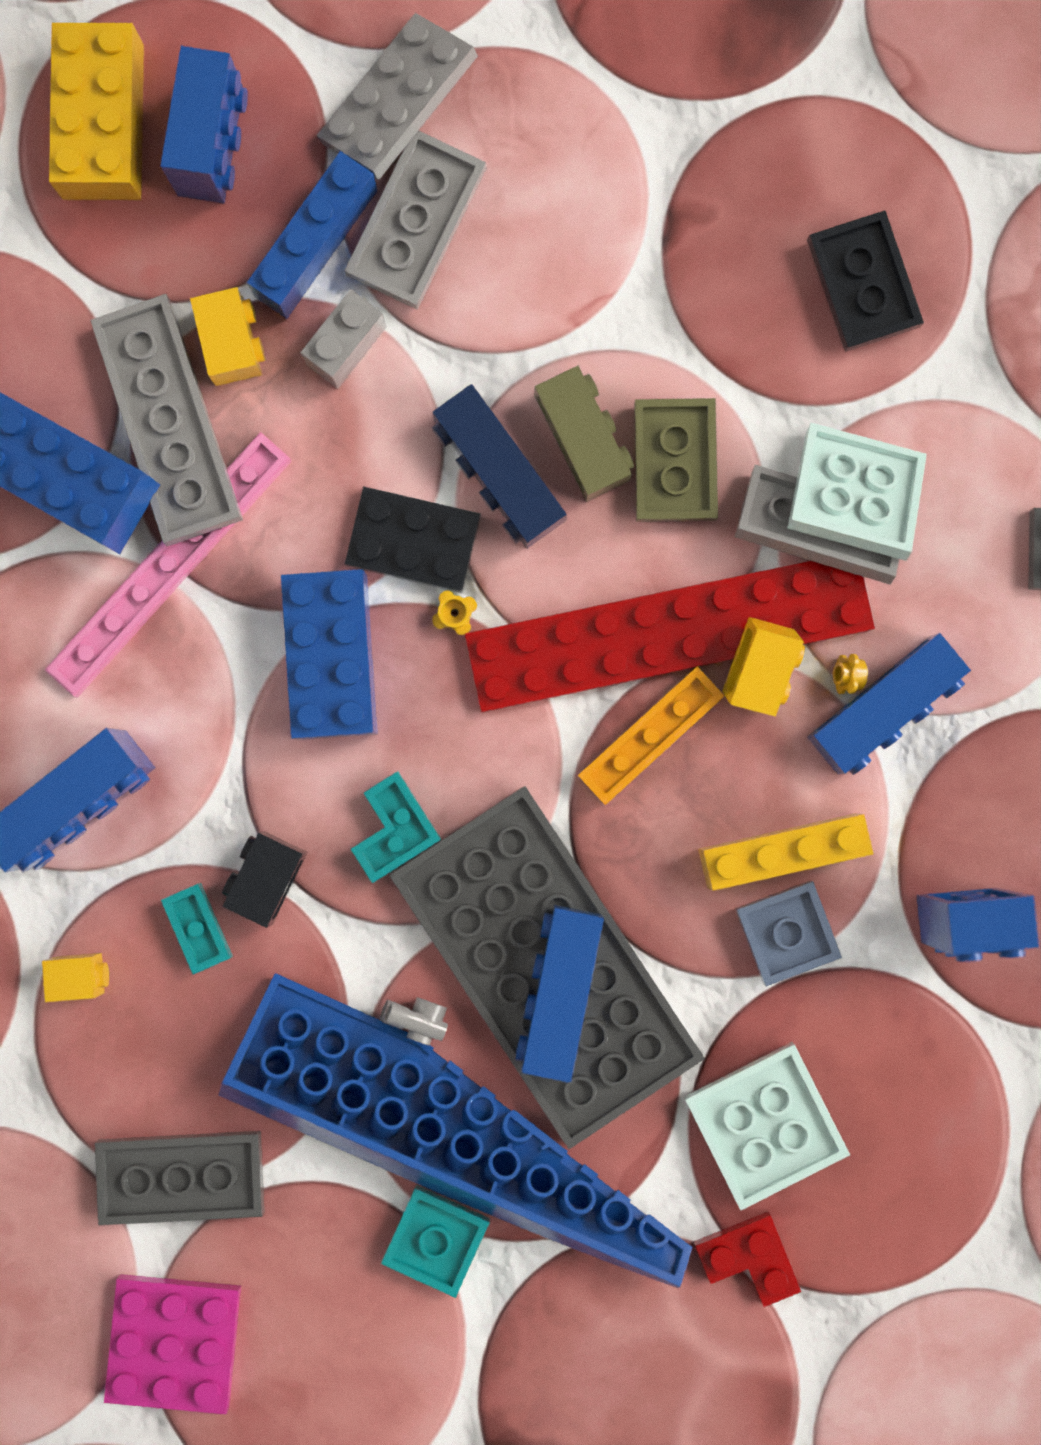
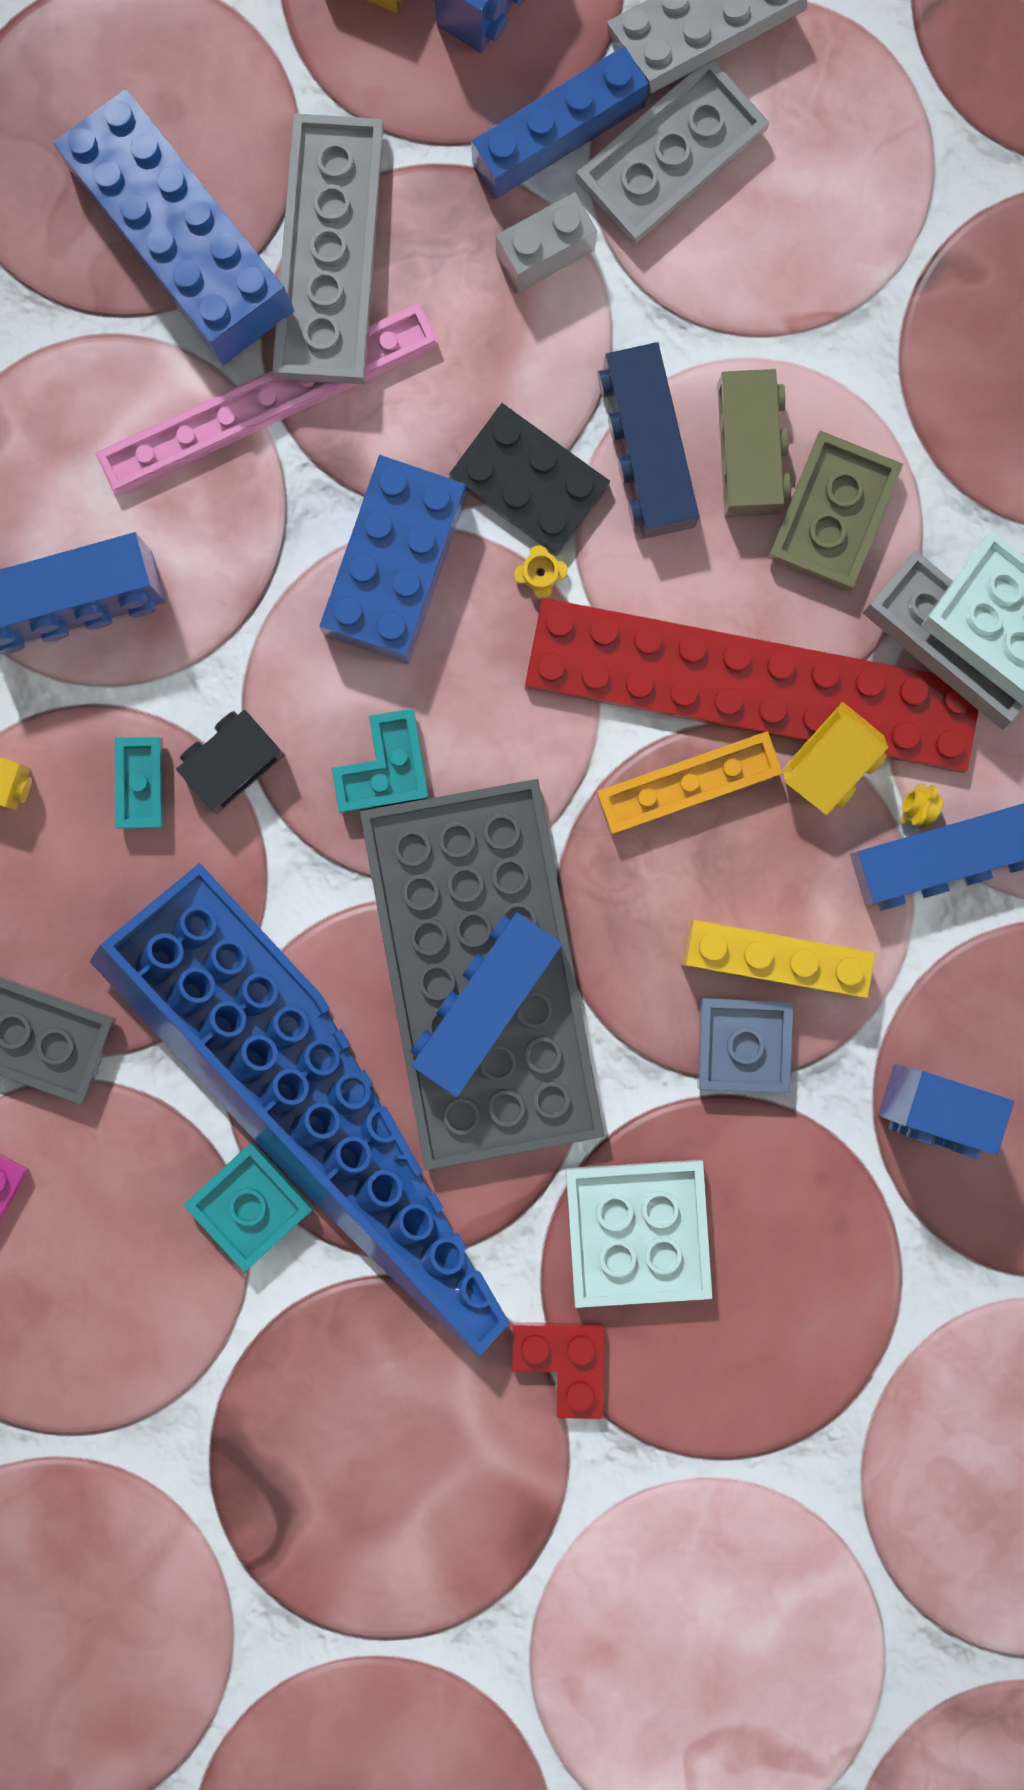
camera: 15 degrees right, 0 degrees up
(227, 337) = (427, 189): yellow piece -> none
(423, 1021) = (329, 976): light grey plate -> none

